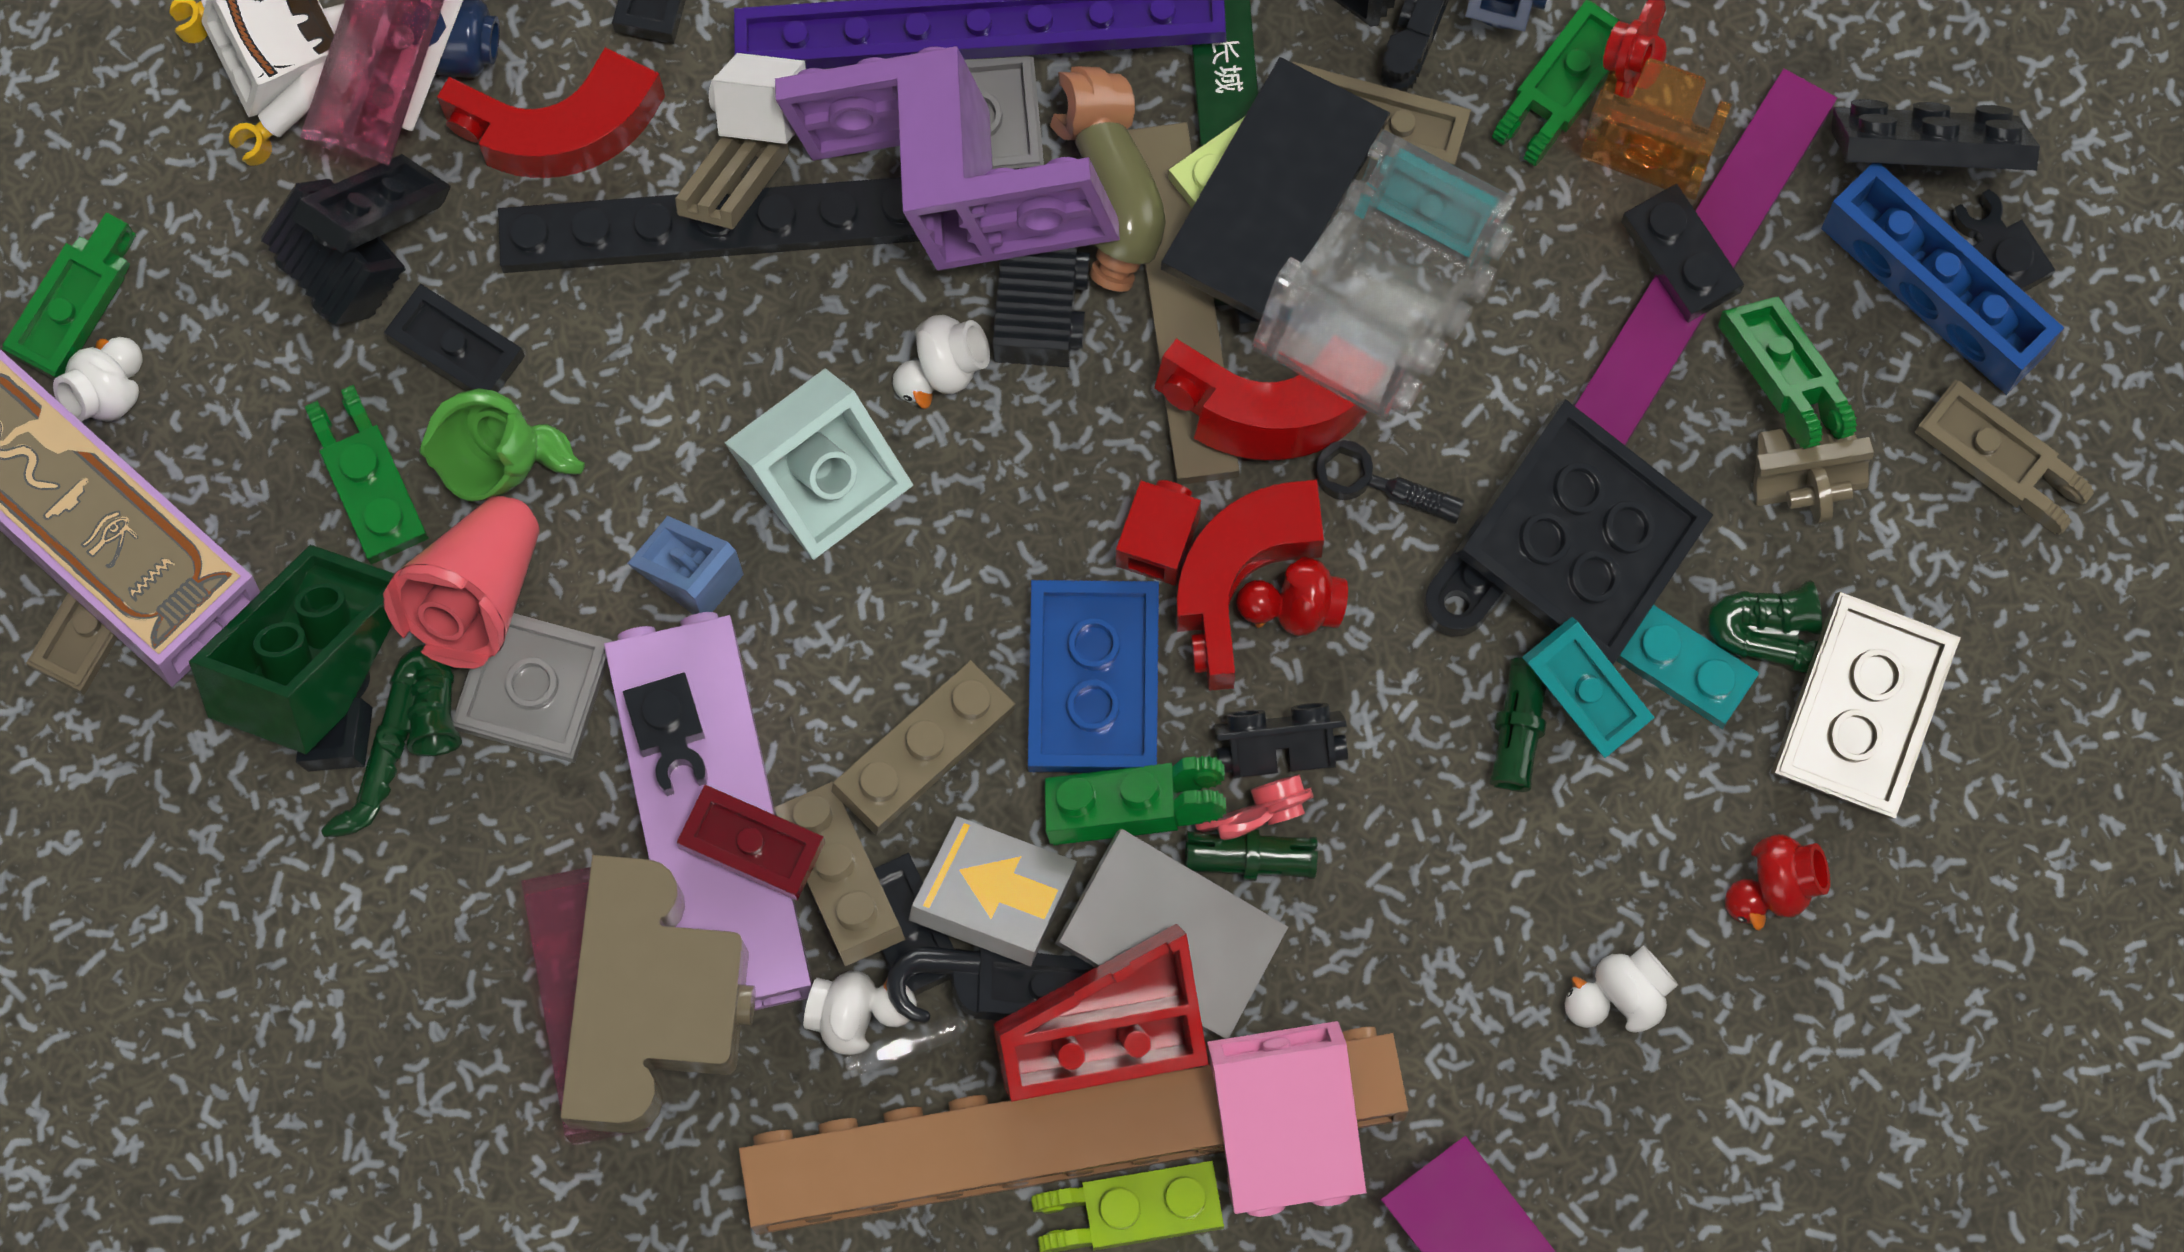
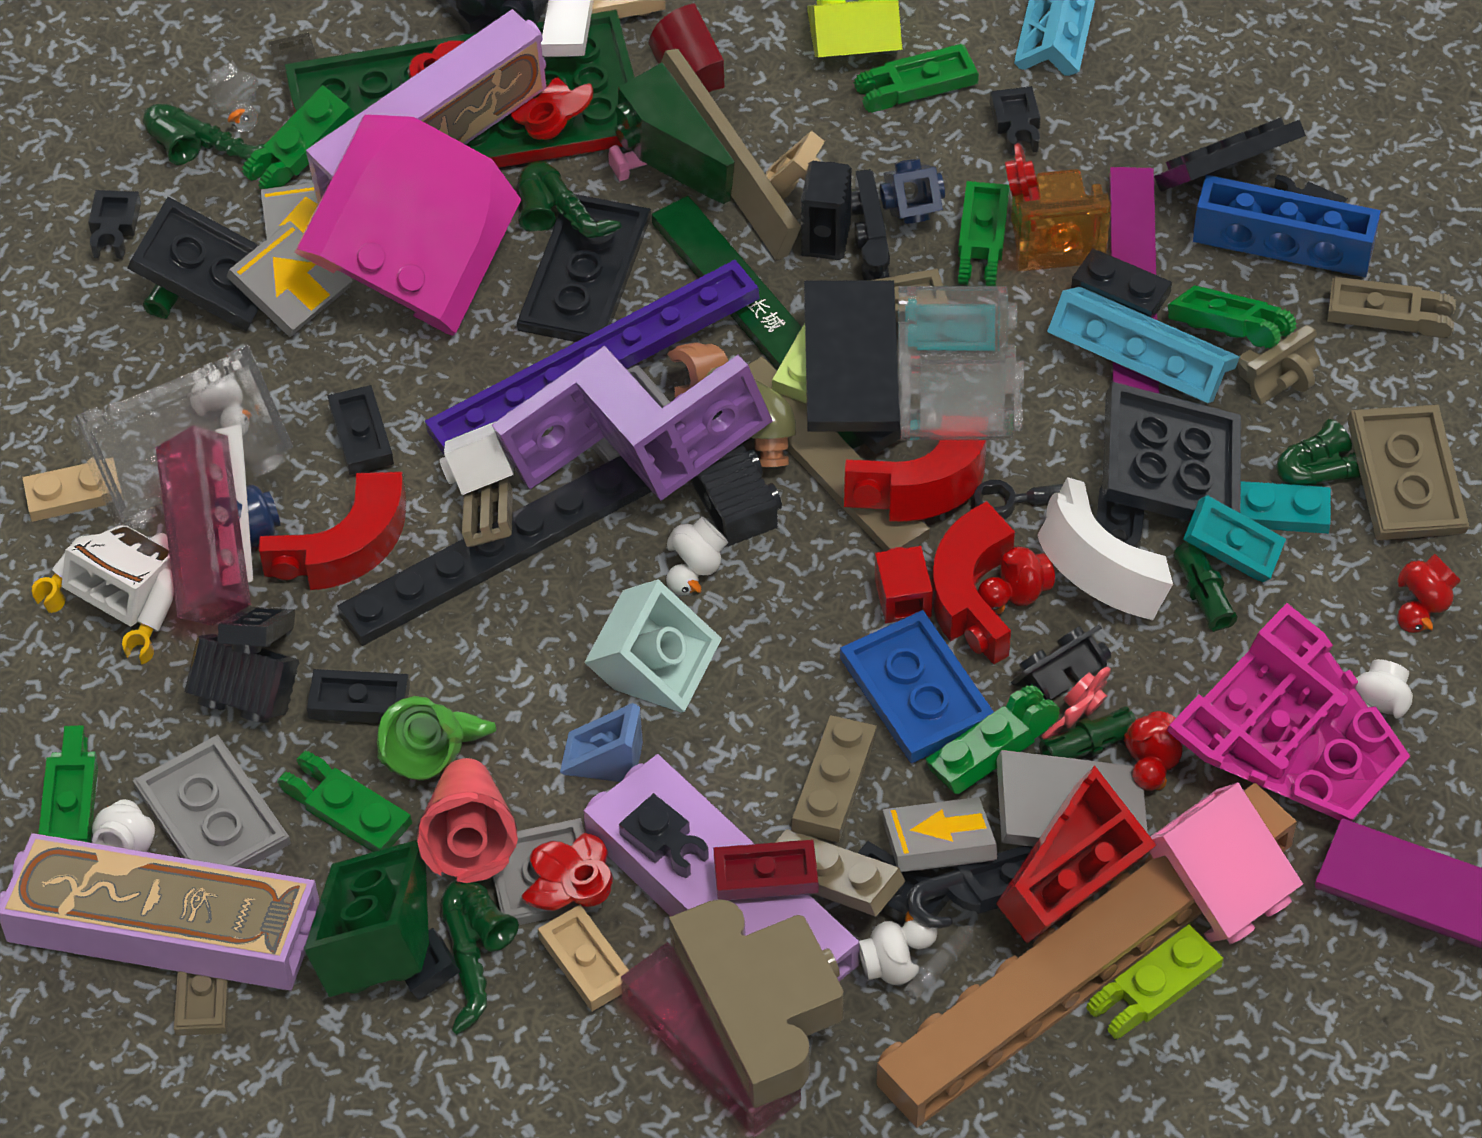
camera: 30 degrees left, 20 degrees down
(216, 405) = (211, 808): none -> light grey tile
(512, 821) = (584, 956): none -> tan plate
(547, 702) = (569, 874): none -> red plate
(1321, 914) = (1152, 749): none -> red animal
(1394, 630) = (1099, 562): none -> white arch
(1479, 962) = (1294, 723): none -> dark pink wedge
(1648, 352) = (1141, 343): none -> medium azure fence

